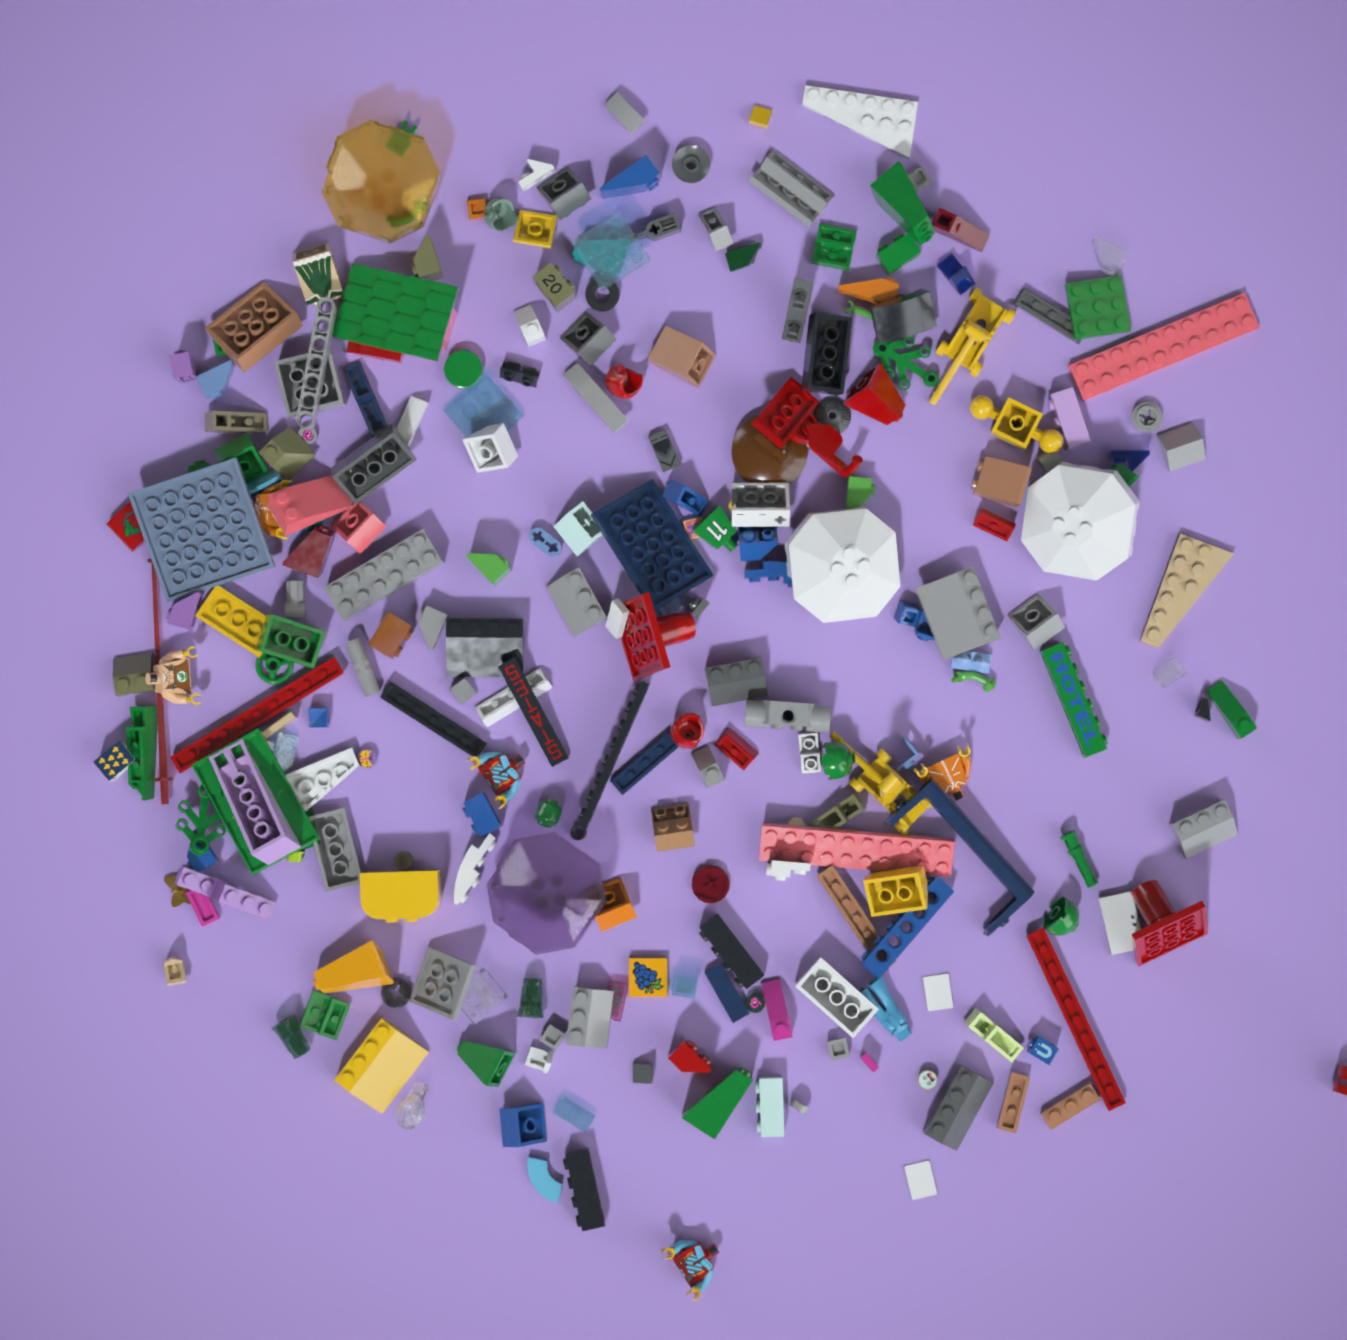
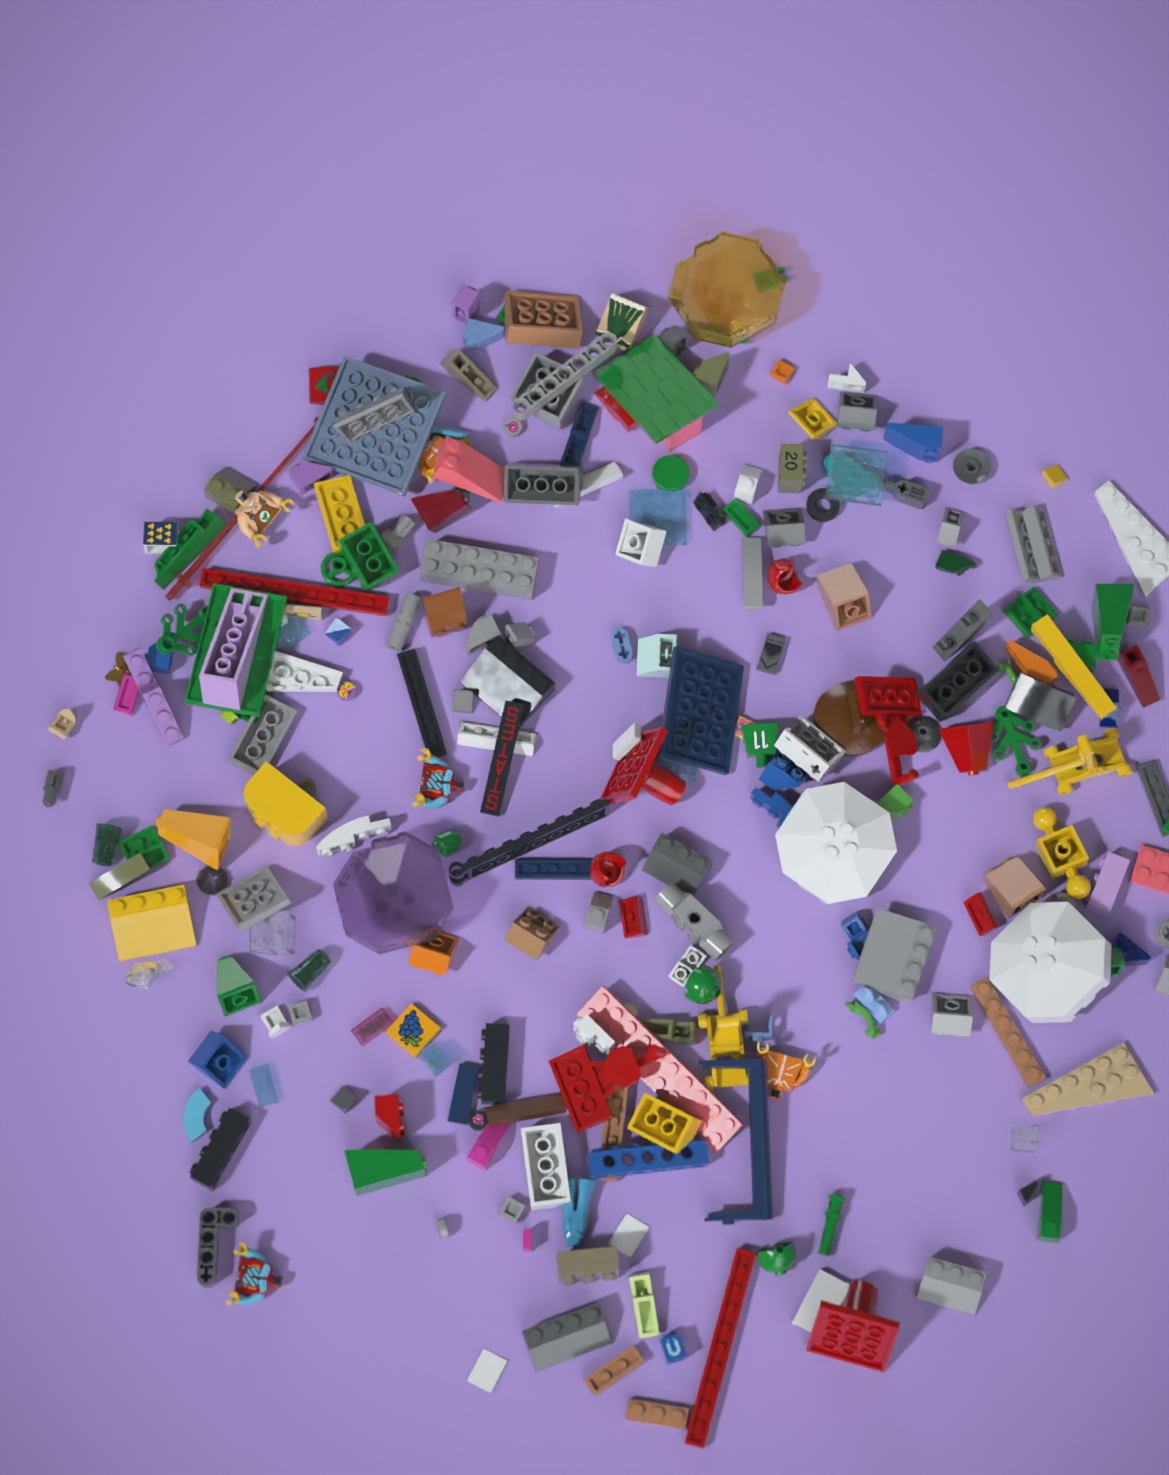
camera: 35 degrees right, 15 degrees down
(195, 524) = (373, 414): none -> light grey slope
(214, 1032) = (50, 790): none -> dark grey hinge
(247, 455) = (454, 406): green slope -> none
(287, 453) = (486, 426): olive slope -> none
(325, 1051) = (119, 876): none -> olive slope
(358, 526) = (492, 520): coral slope -> none
(372, 255) = (675, 339): none -> dark grey slope
(462, 602) = (519, 635): none -> light grey slope
(482, 814) = (396, 800): blue slope -> none
(491, 566) = (566, 629): bright green slope -> none
(500, 214) = (795, 386): sand green cap -> none
(548, 358) = (741, 517): none -> green tile
(576, 602) = (606, 707): light grey slope -> none
(589, 1017) = (341, 1020): light grey slope -> none
(624, 113) = (952, 391): light grey slope -> none
(644, 1266) = (212, 1247): none -> dark grey beam
(685, 498) = (756, 699): blue slope -> none
(697, 606) = (696, 783): dark grey plate -> none
(710, 884) = (523, 1001): dark red tile -> none
(770, 1106) = (420, 1209): light aqua brick -> none
(784, 966) = (525, 1110): none -> reddish brown tile
(816, 907) = (584, 1084): none -> red plate
(906, 268) = (1072, 666): none -> yellow slope
(927, 1079) = (561, 1295): tile -> none
(930, 1044) = (588, 1265): none -> dark tan brick
(1073, 700) = (929, 1098): green brick -> none
(1088, 598) = (1007, 1032): none -> nougat plate

